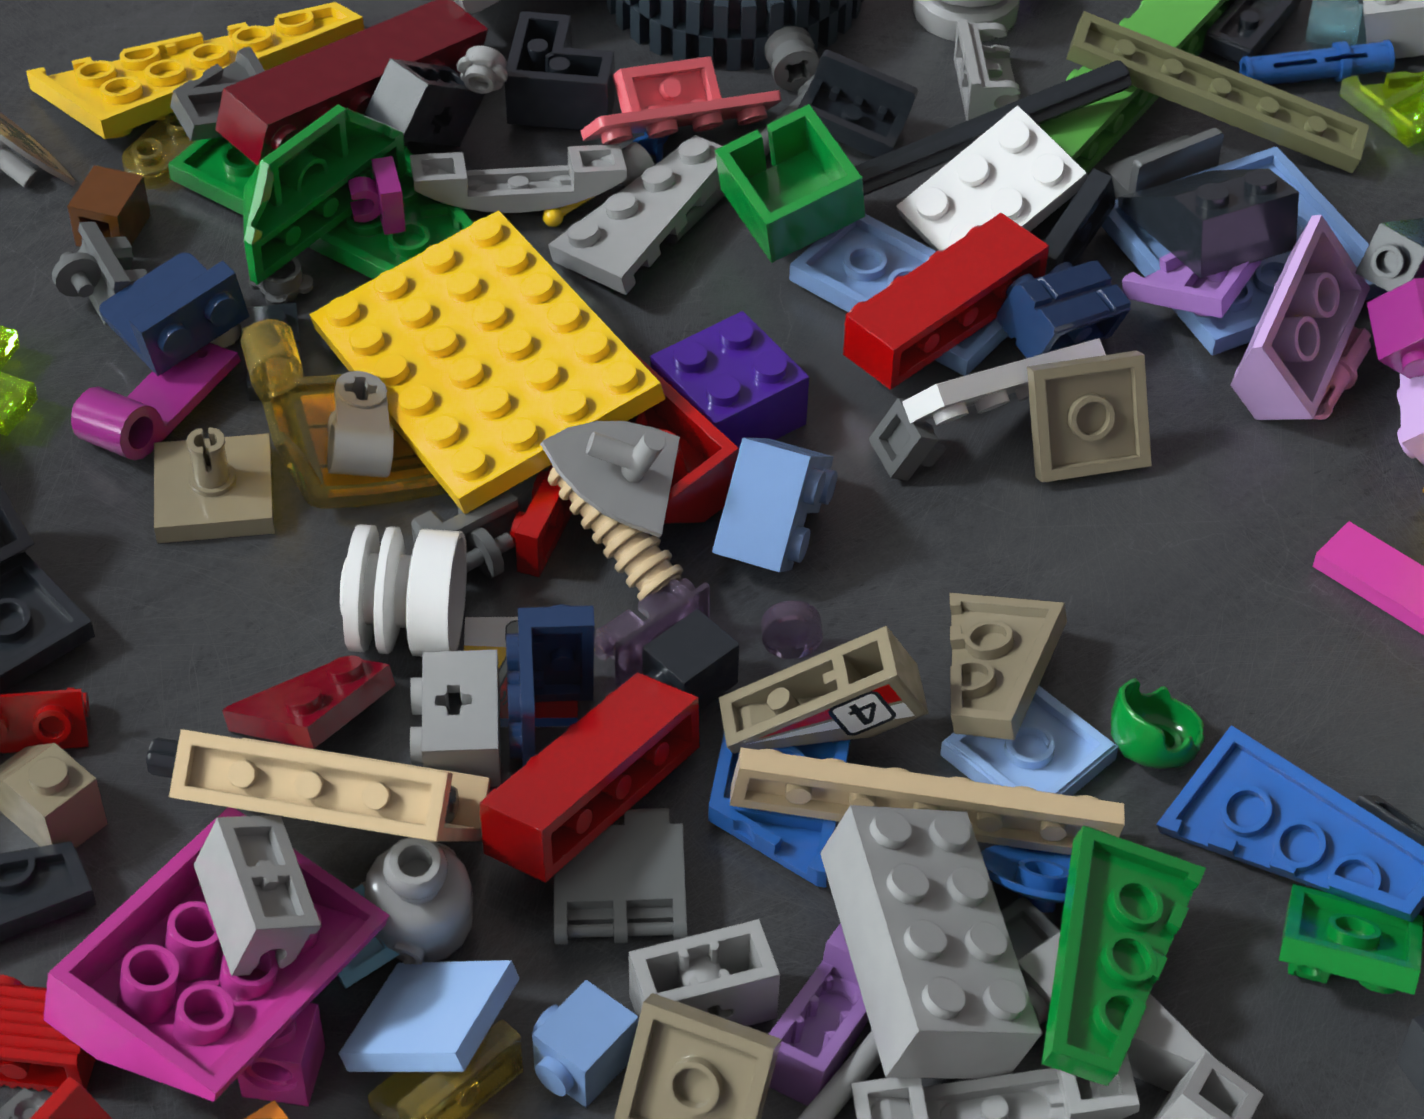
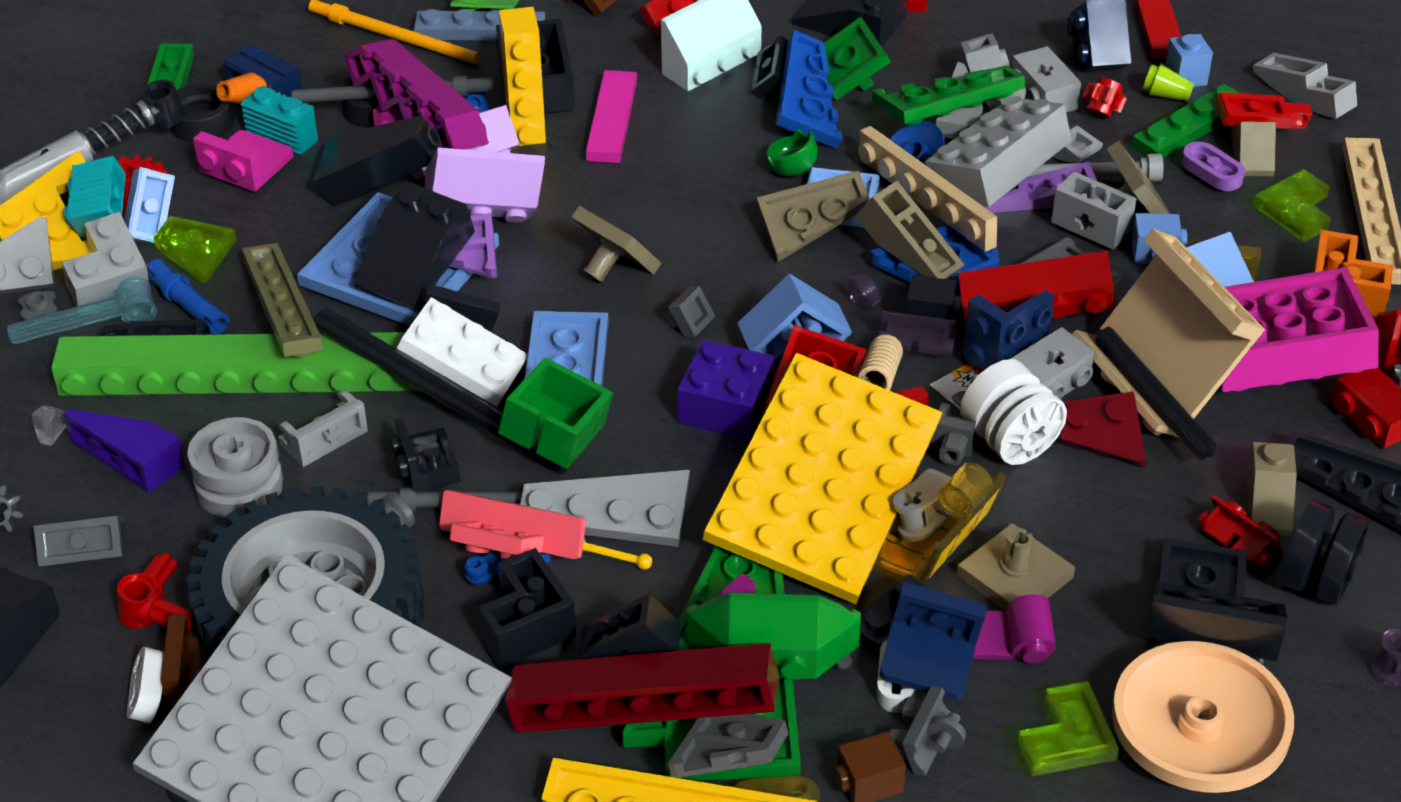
camera: 125 degrees left, 5 degrees down
(255, 891) = (1264, 291): light grey hinge -> none
(483, 69) = (586, 606): light grey plate -> none
(523, 189) = (638, 570): light grey slope -> none
(618, 469) = (861, 351): light grey shield -> none
(941, 300) = (582, 321): red brick -> none
(989, 387) = (623, 275): white plate -> none
(1062, 308) = (538, 285): dark blue brick -> none
(1166, 162) = (358, 304): dark grey panel -> none

